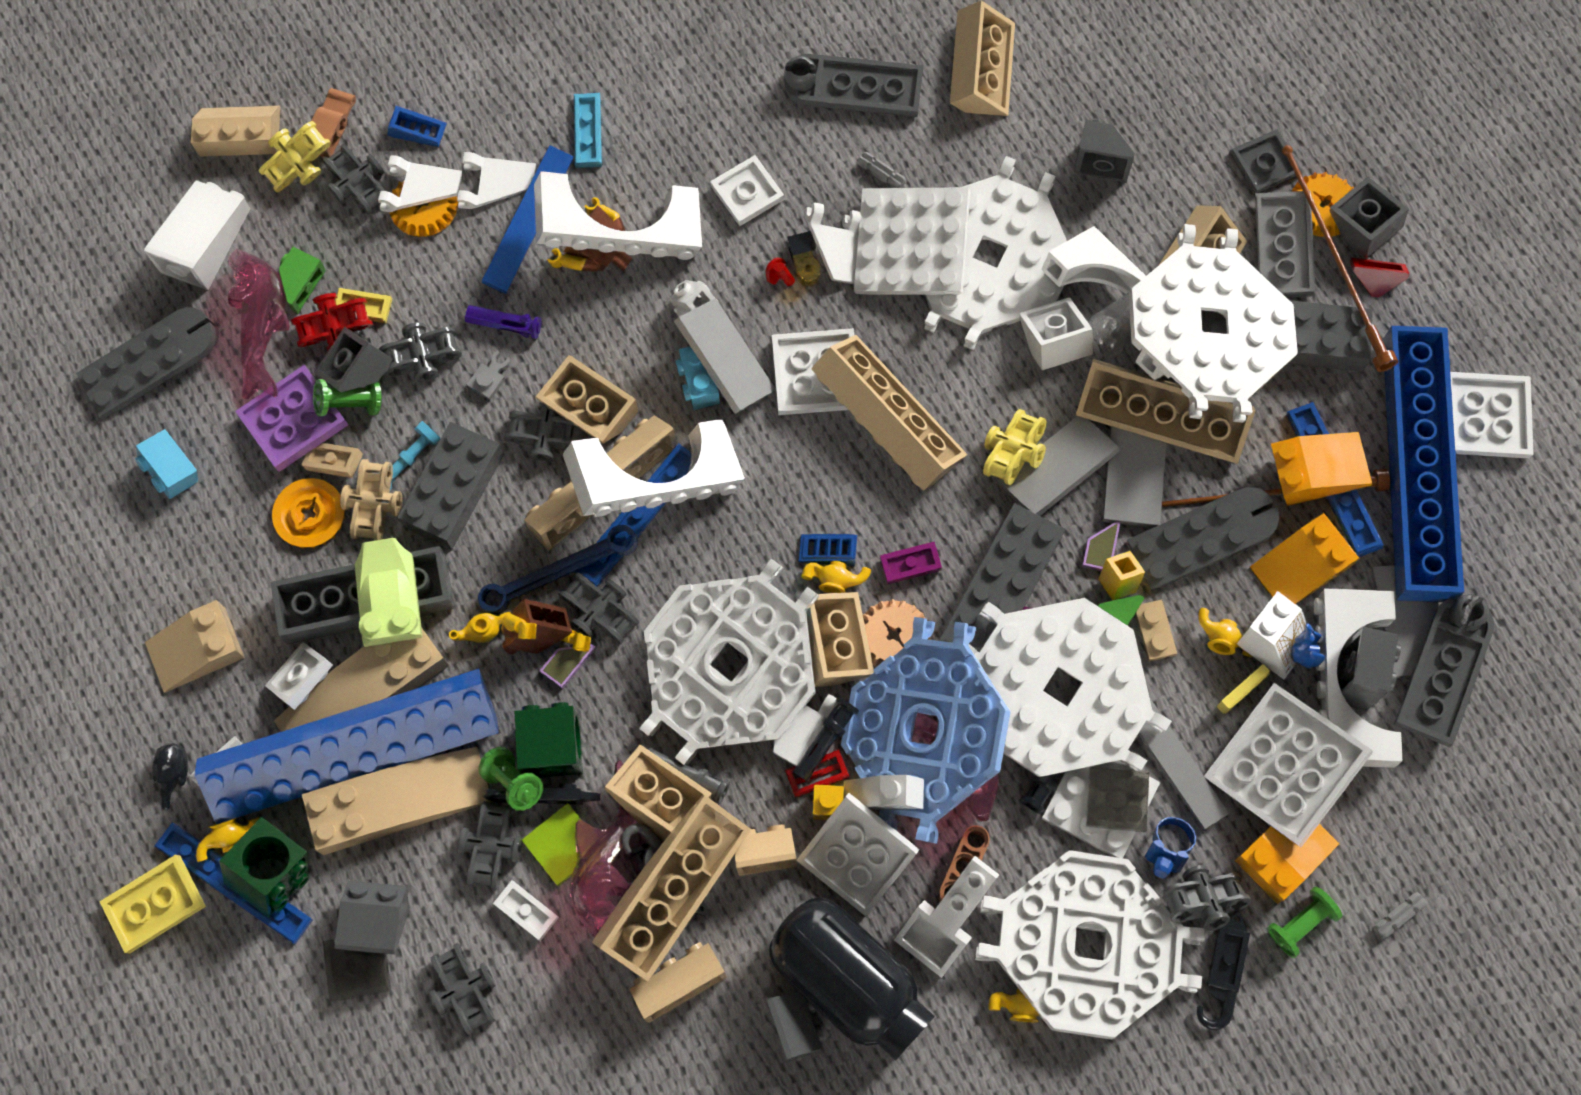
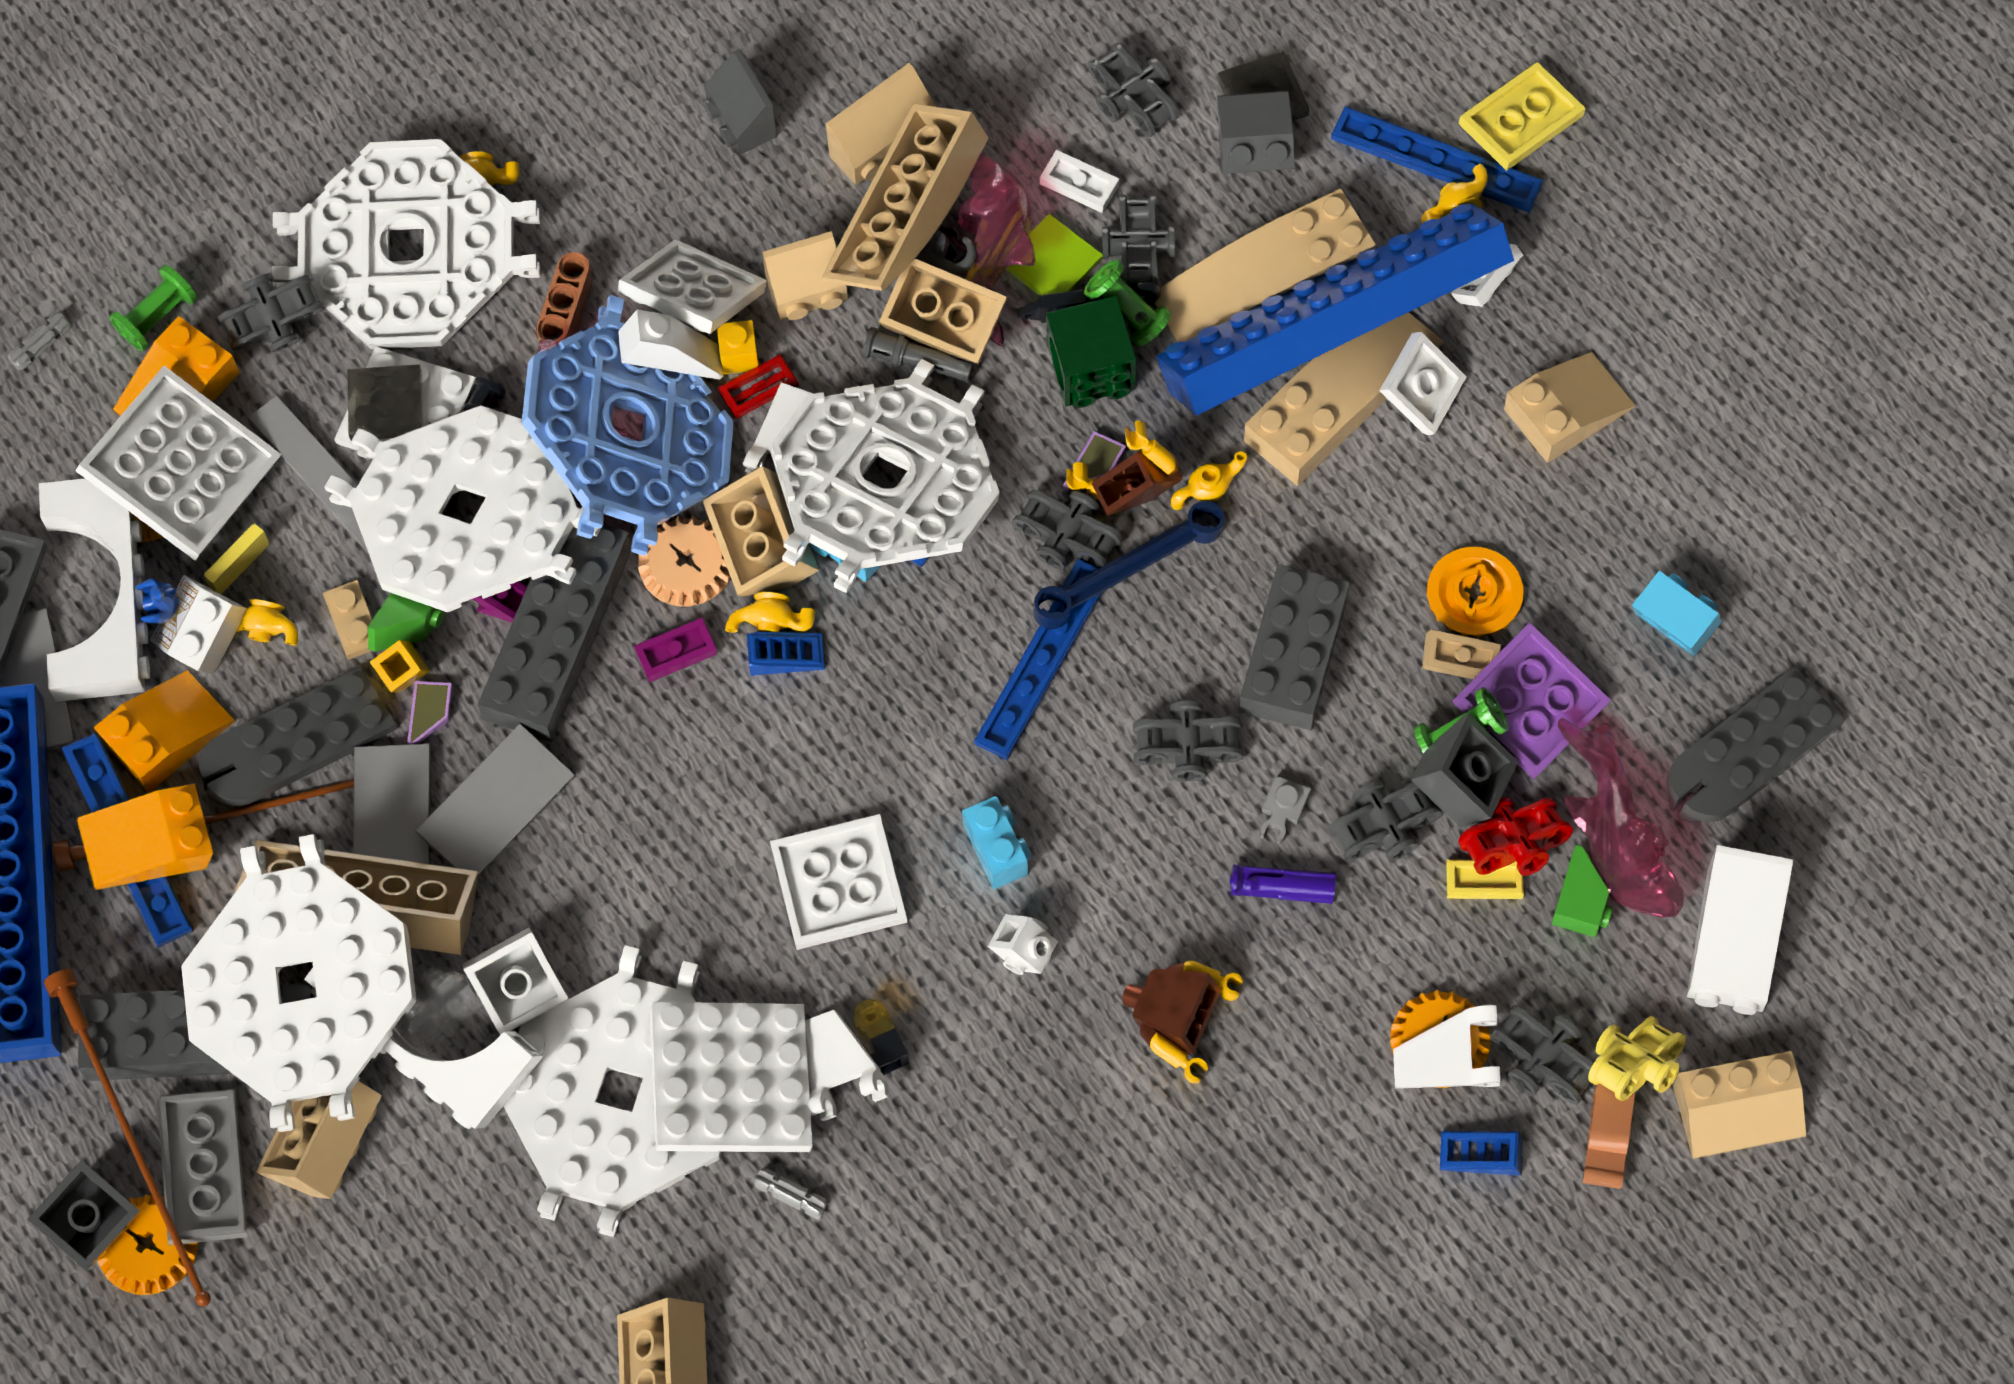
camera: 170 degrees right, 5 degrees down
(168, 766) = (1552, 265): black piece -> none
(259, 844) = (1409, 187): dark green brick -> none
(328, 599) = (1369, 490): dark grey brick -> none
(372, 490) = (1393, 611): tan axle -> none
(387, 593) = (1330, 471): yellowish green slope -> none
(407, 458) = (1345, 711): medium azure piece -> none
(497, 180) = (1341, 1091): white flag -> none
(522, 227) = (1284, 1039): blue tile -> none
(564, 223) = (1070, 1035): white arch -> none
(587, 130) = (1230, 1190): medium azure tile -> none
(588, 400) = (1137, 776): tan slope -> none
(607, 488) = (956, 711): white arch -> none
(632, 454) = (1097, 679): tan slope -> none
(725, 355) = (962, 863): light grey tile -> none
(747, 190) = (979, 1128): white plate -> none
(778, 270) = (915, 1013): red plate -> none
(832, 728) = (745, 424): black pin -> none
(849, 976) = (681, 150): black piece -> none
(854, 84) = (848, 1321): dark grey plate -> none
(888, 411) = (729, 832): tan slope -> none
(936, 933) = (576, 225): white plate -> none
(1014, 447) = (555, 813): light yellow axle -> none
(1103, 152) = (474, 1249): dark grey slope -> none
(1167, 860) = (324, 340): blue piece -> none
(1226, 970) = (243, 246): black plate -> none
(1263, 162) = (239, 1298): dark grey tile -> none
(1367, 667) = (81, 579): dark grey brick -> none
(1379, 276) = (64, 1146): slope -> none

